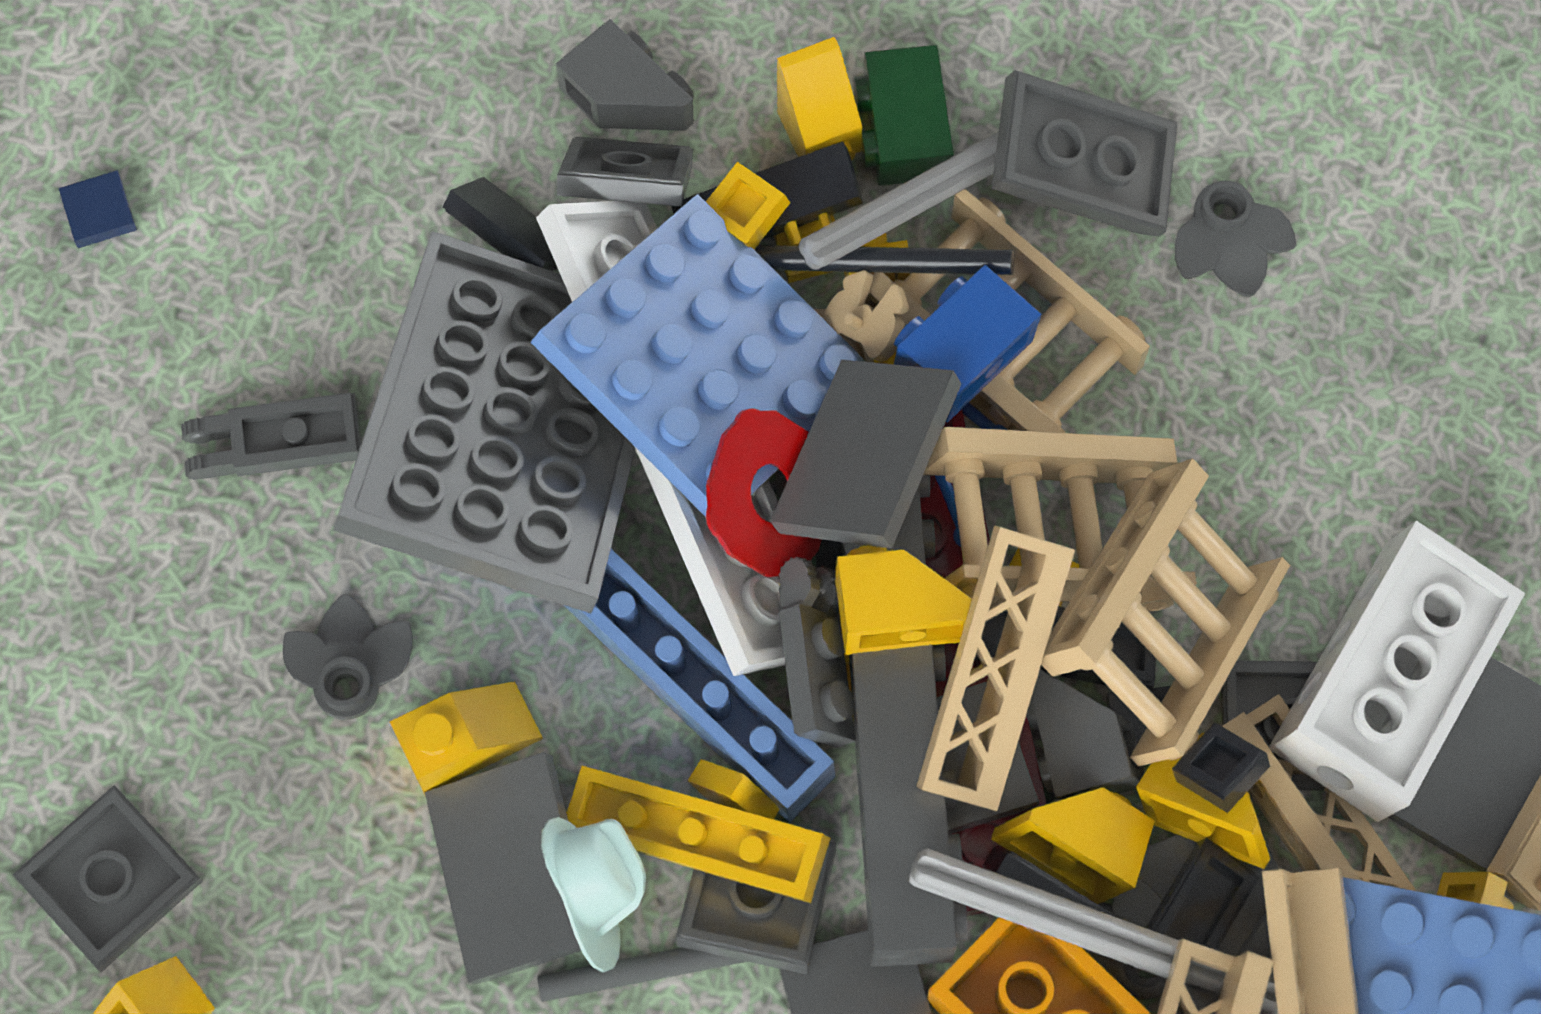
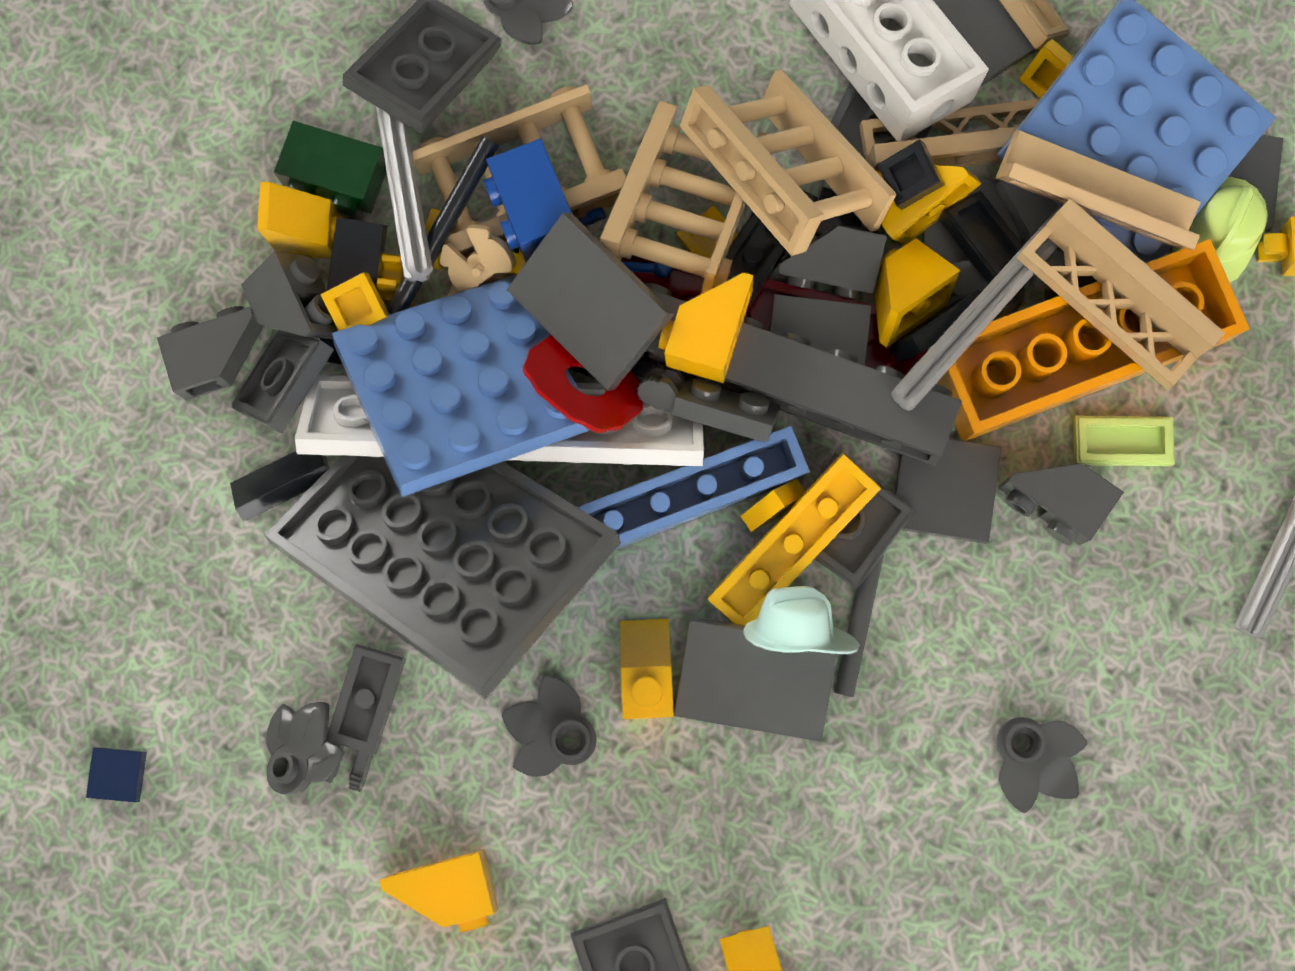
camera: 60 degrees left, 10 degrees up
(110, 622) = (447, 891): none -> yellow slope
(206, 386) = (302, 743): none -> dark grey plate
(724, 128) = (287, 296): none -> dark grey slope
(1010, 672) = (789, 282): tan fence -> none

